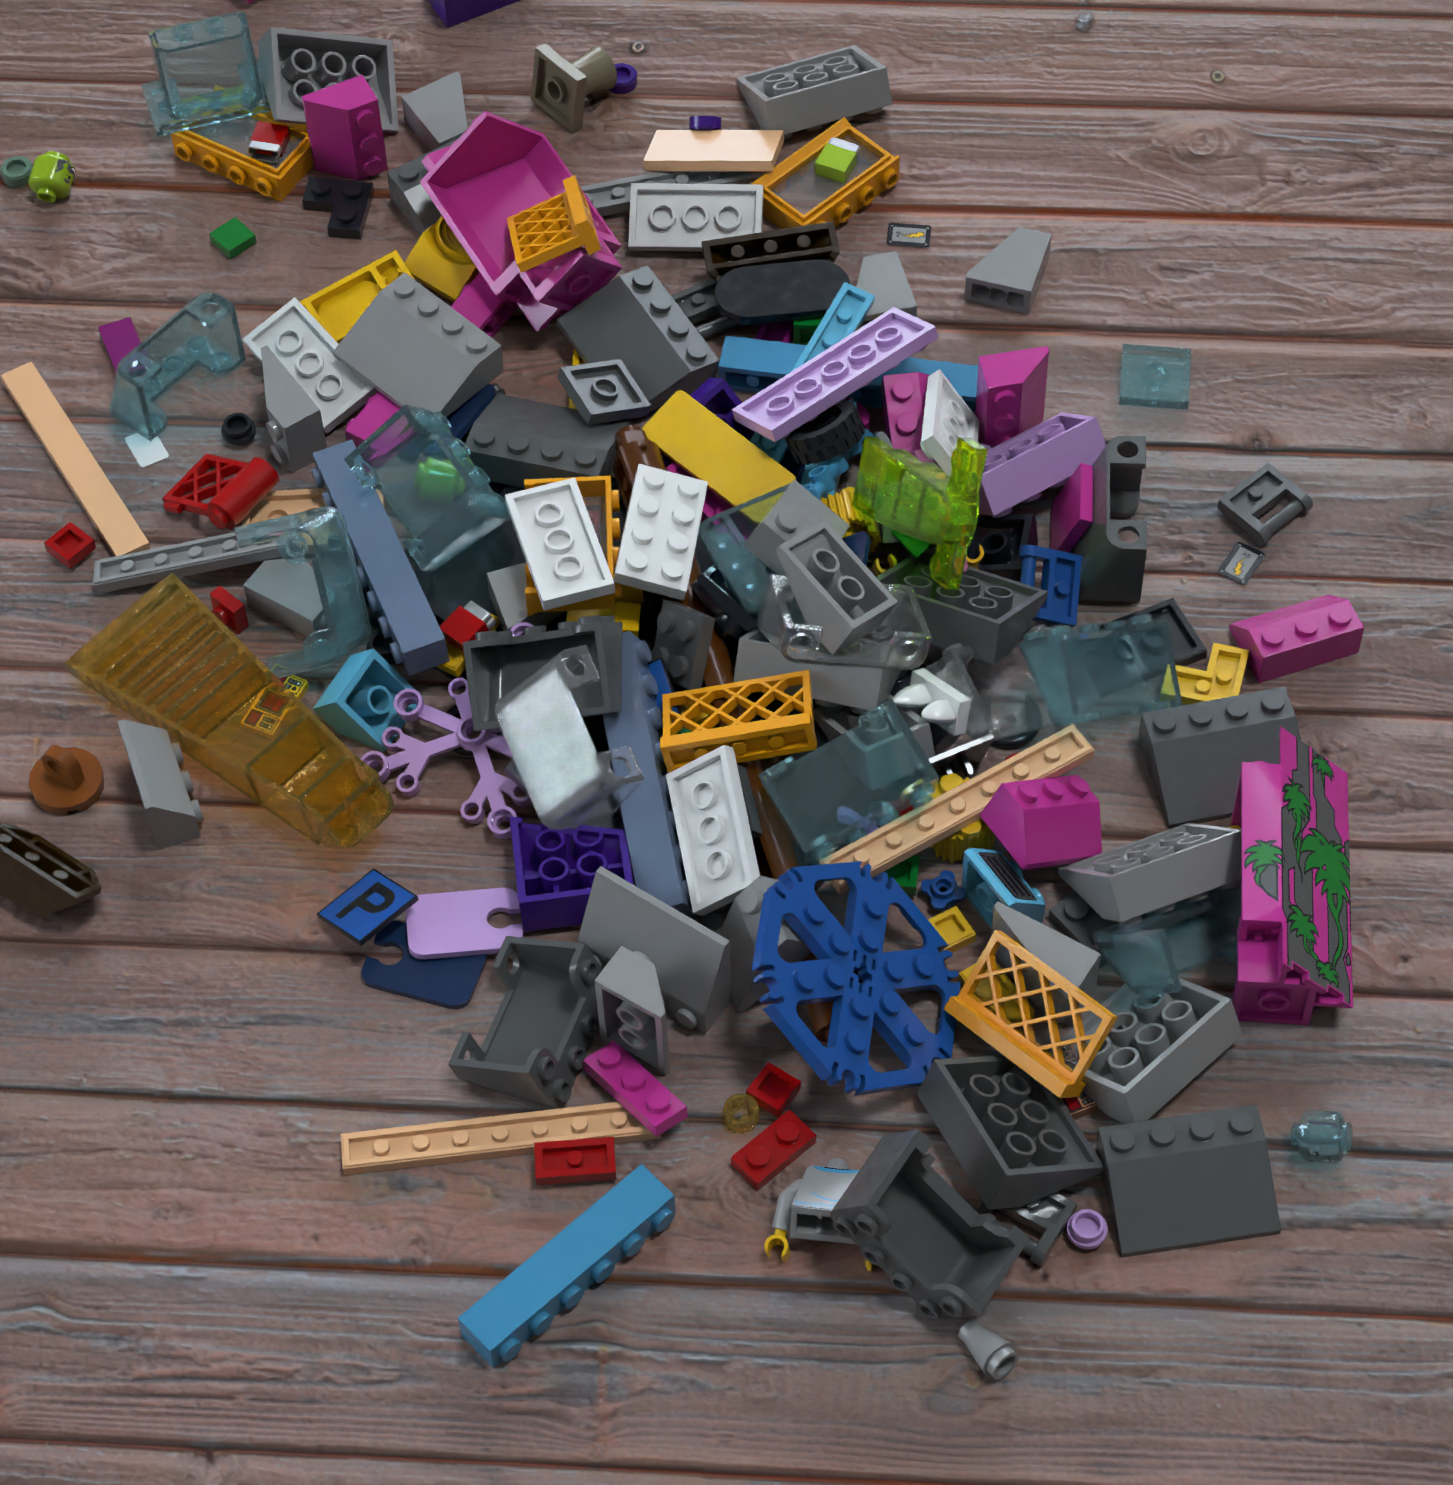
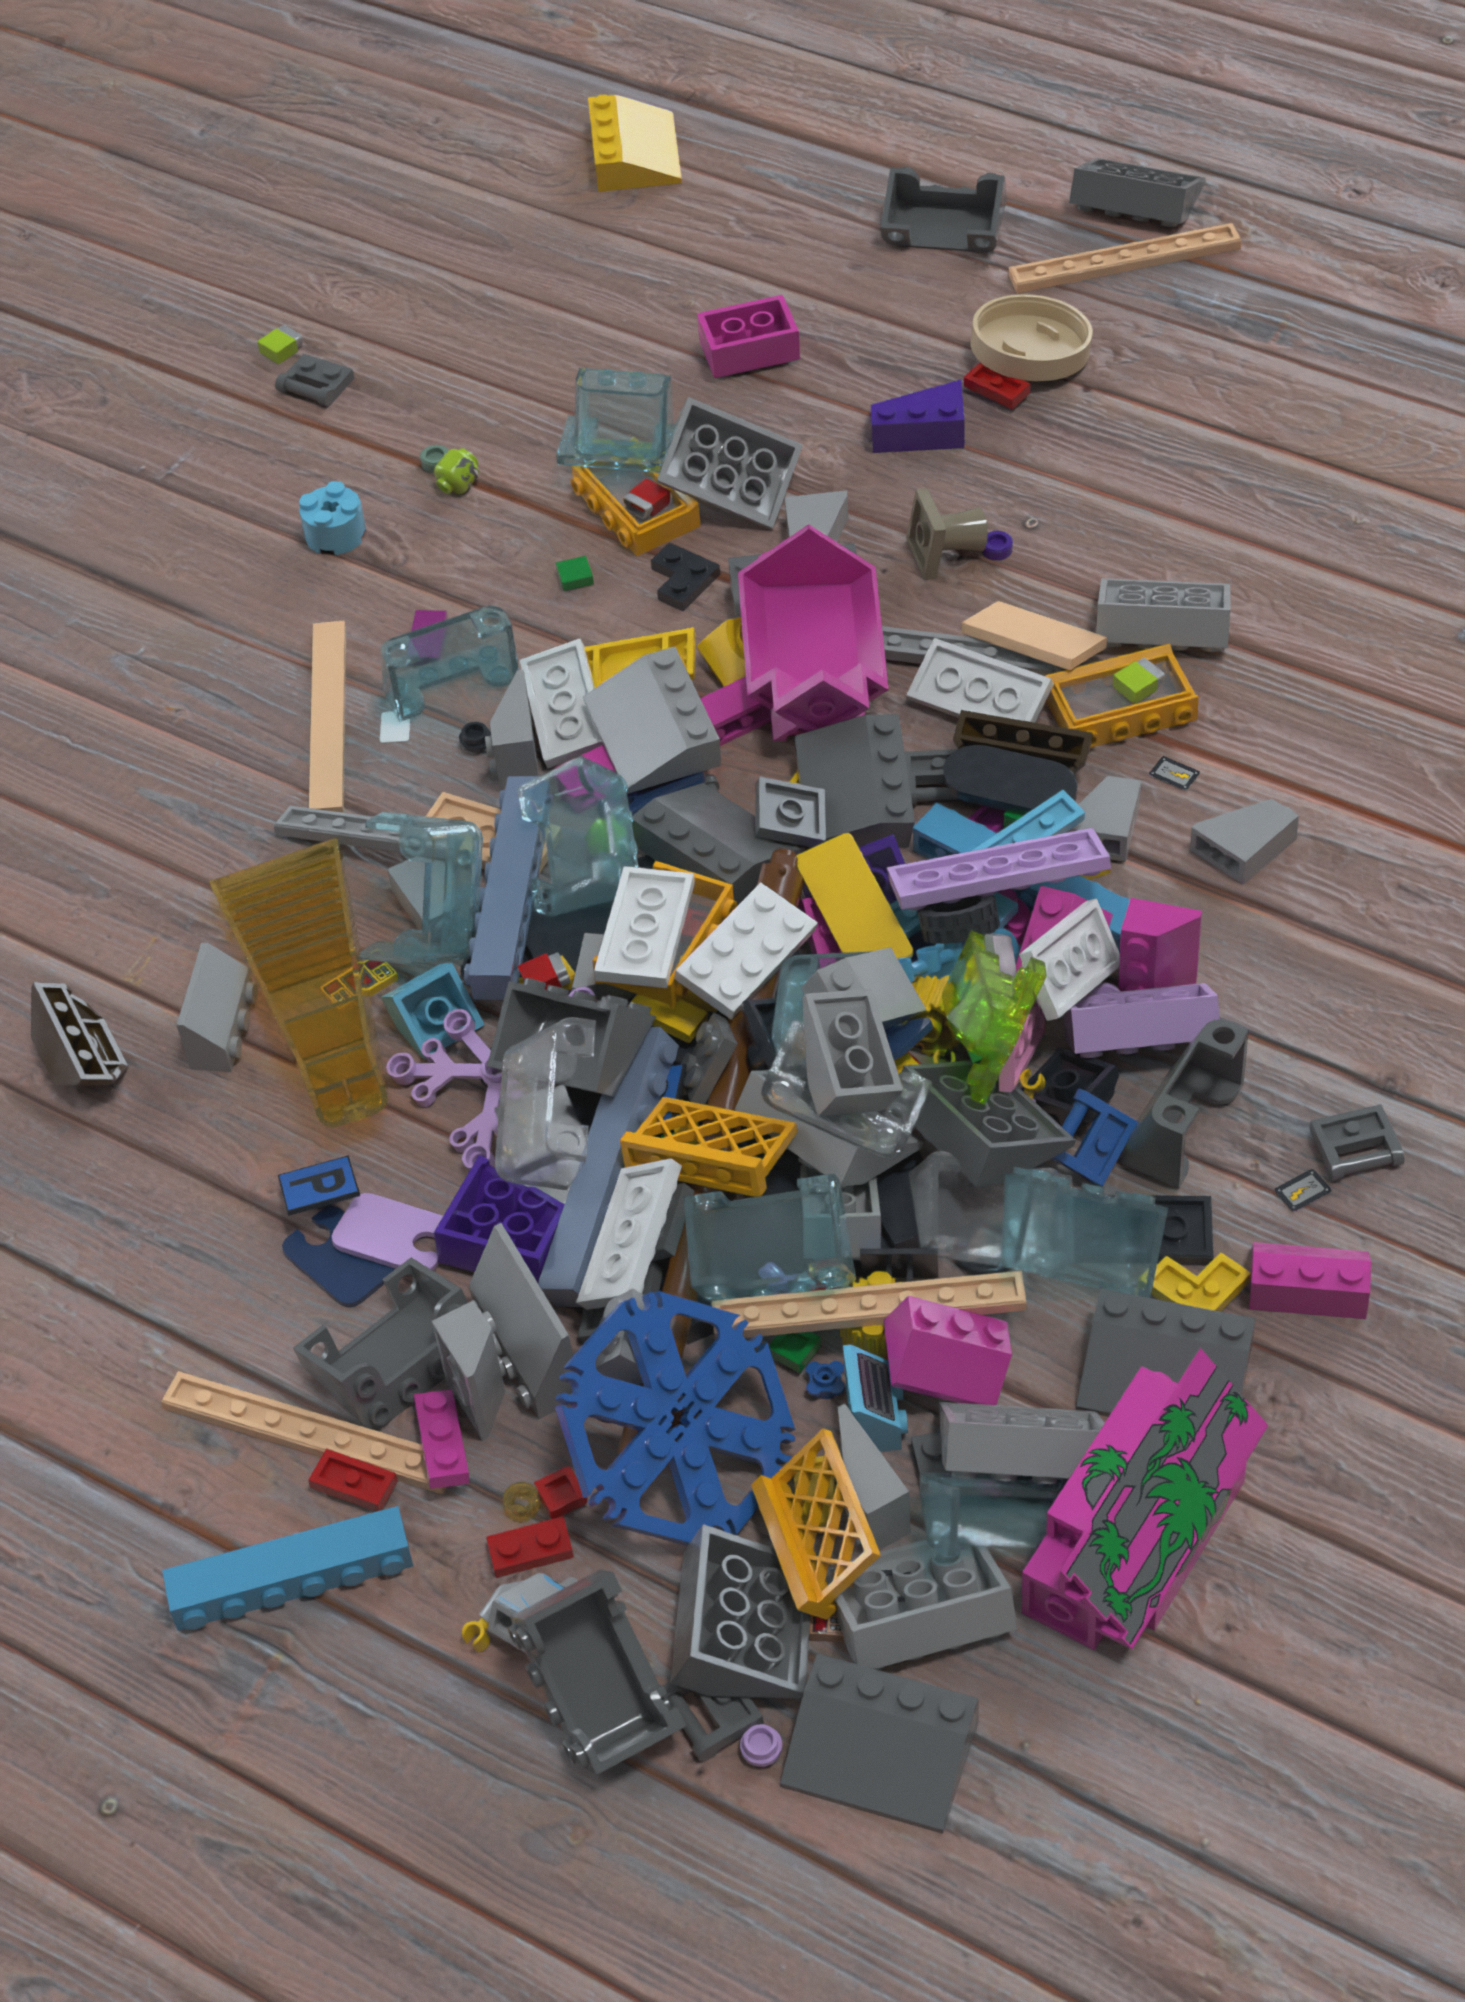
camera: 30 degrees right, 5 degrees down
(66, 780) = (152, 980): dark orange tile -> none
(70, 545) = (278, 785): red plate -> none
(229, 610) = (367, 888): red plate -> none
(231, 498) = (437, 787): red piece -> none
(346, 130) = (712, 508): dark pink slope -> none
(553, 228) = (825, 649): light orange fence -> none
(705, 123) = (1043, 608): dark purple tile -> none
(935, 701) = (903, 1197): white tile -> none
(953, 929) = (809, 1416): yellow tile -> none
(991, 1351) = (601, 1816): light grey cone -> none
(1072, 510) = (1156, 1077): dark pink tile -> none
(1155, 376) = (1326, 984): clear light blue tile -> none
(1322, 1136) = (1033, 1759): clear light blue head -> none

